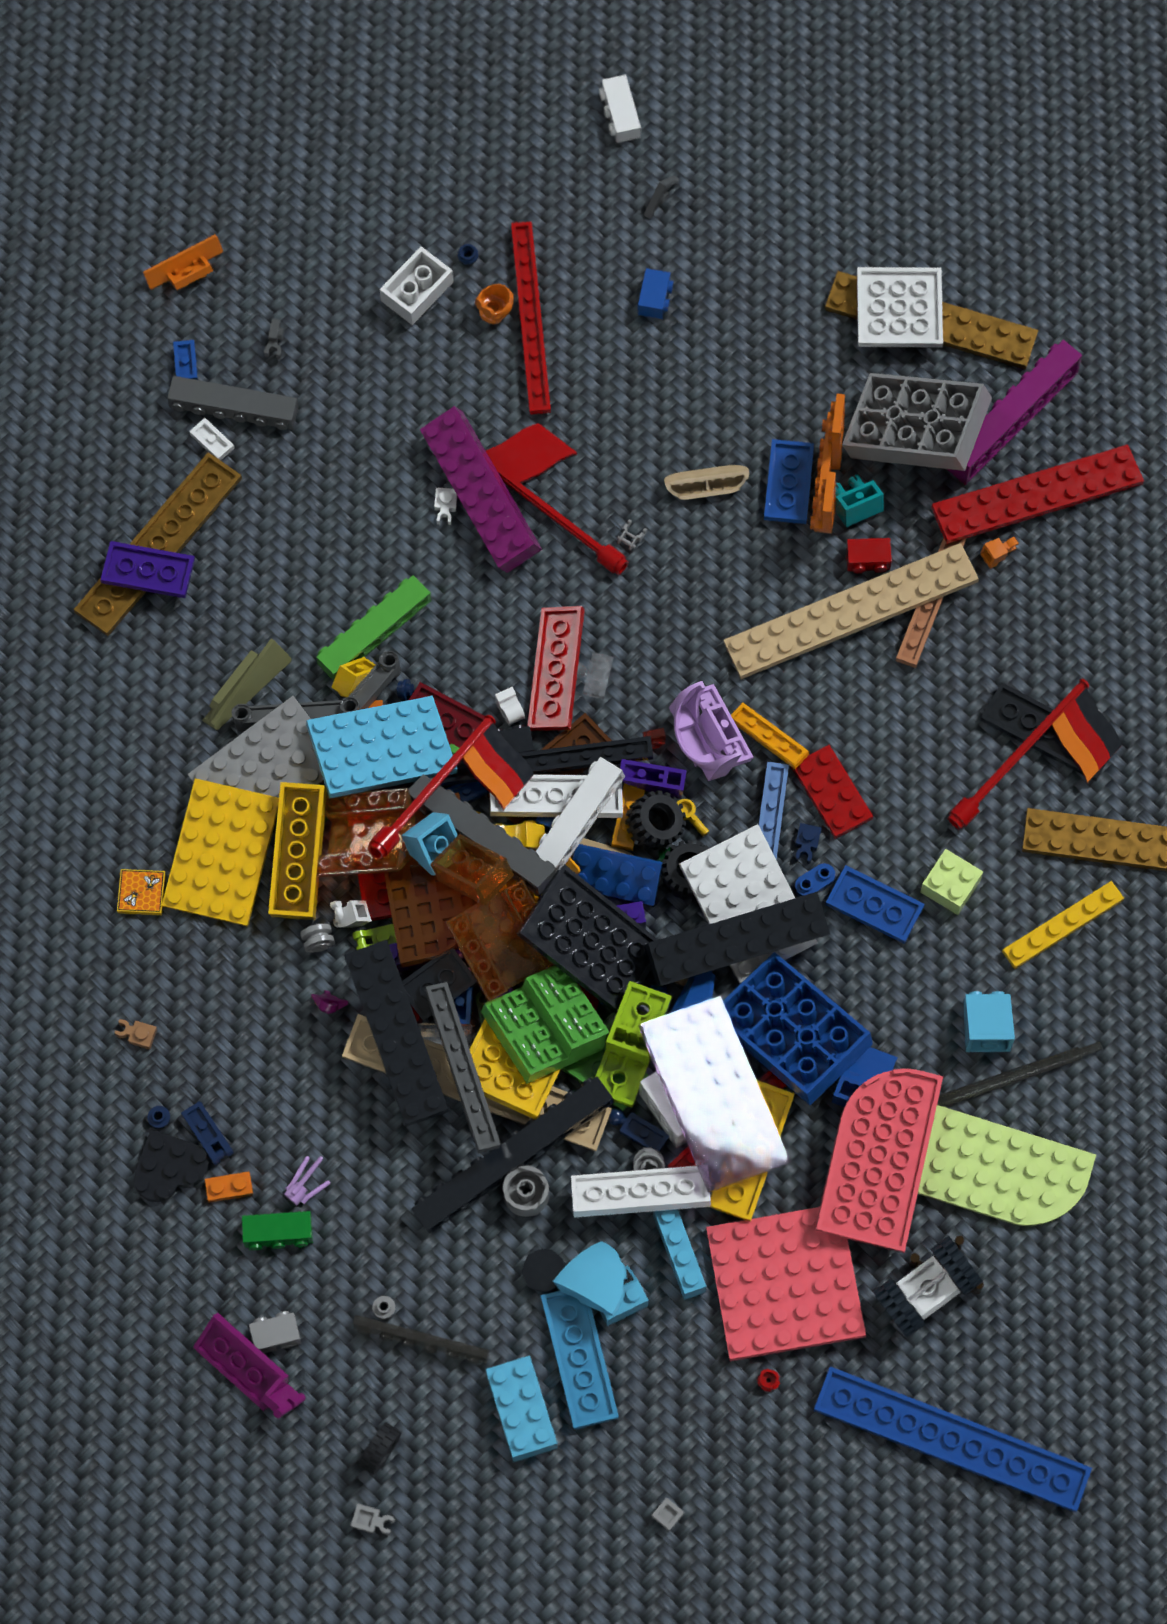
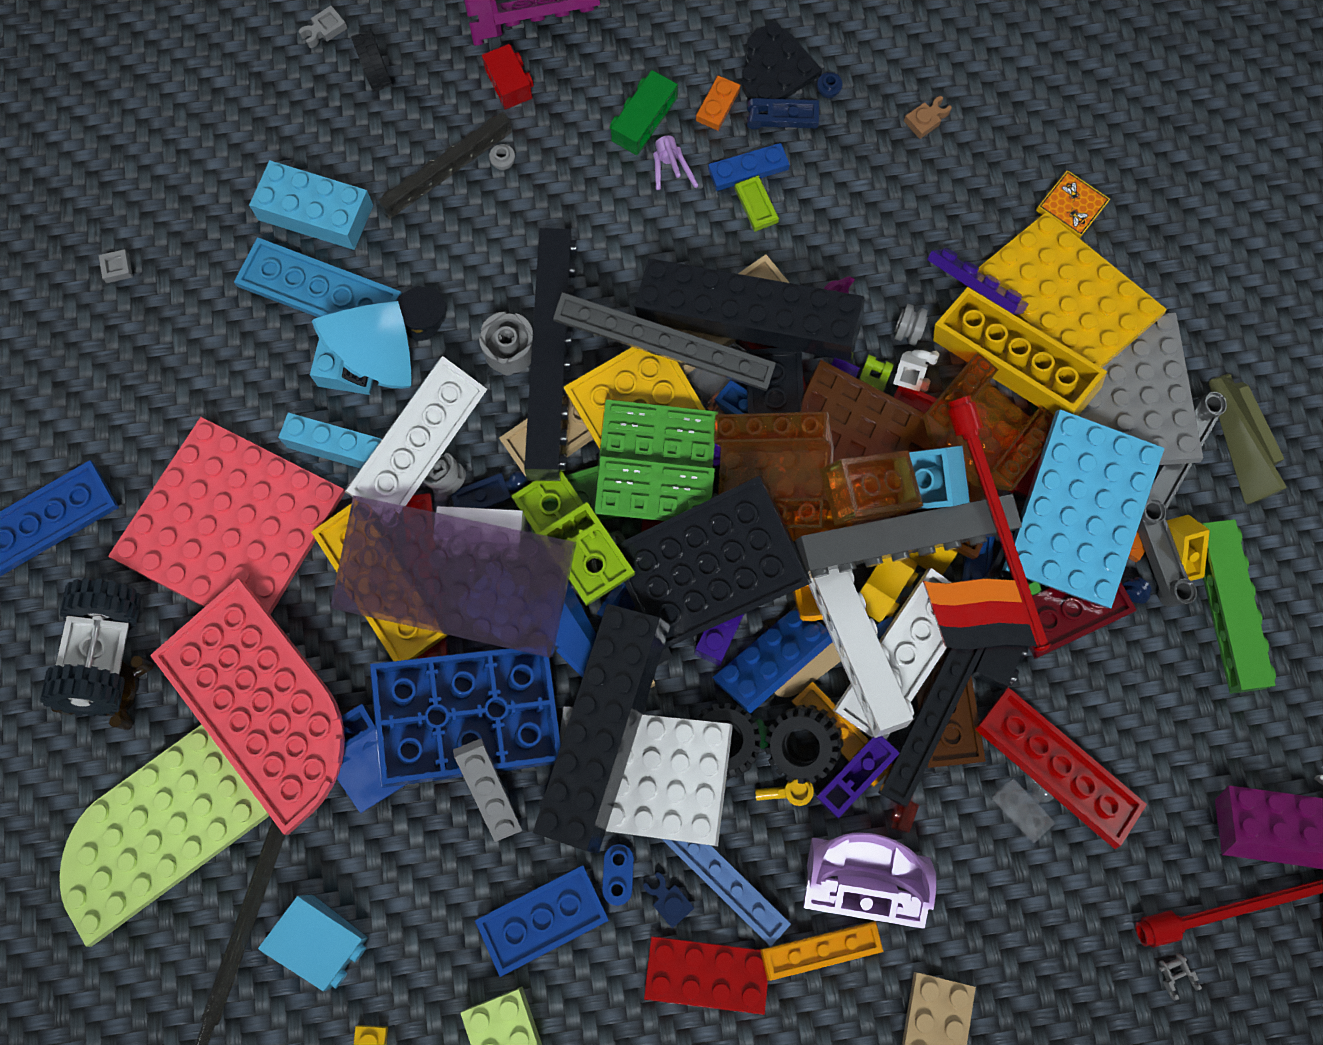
camera: 125 degrees right, 5 degrees up
(255, 913) = (984, 285): none -> dark purple plate
(267, 1130) = (748, 165): none -> blue plate
(275, 1331) = (549, 52): light grey piece -> none
(292, 1105) = (756, 203): none -> lime tile
(316, 1349) = (507, 76): none -> red brick
(509, 706) = (1046, 686): white leg -> none
(768, 1386) = (150, 437): red plate -> none
(826, 979) = (487, 789): none -> light grey plate

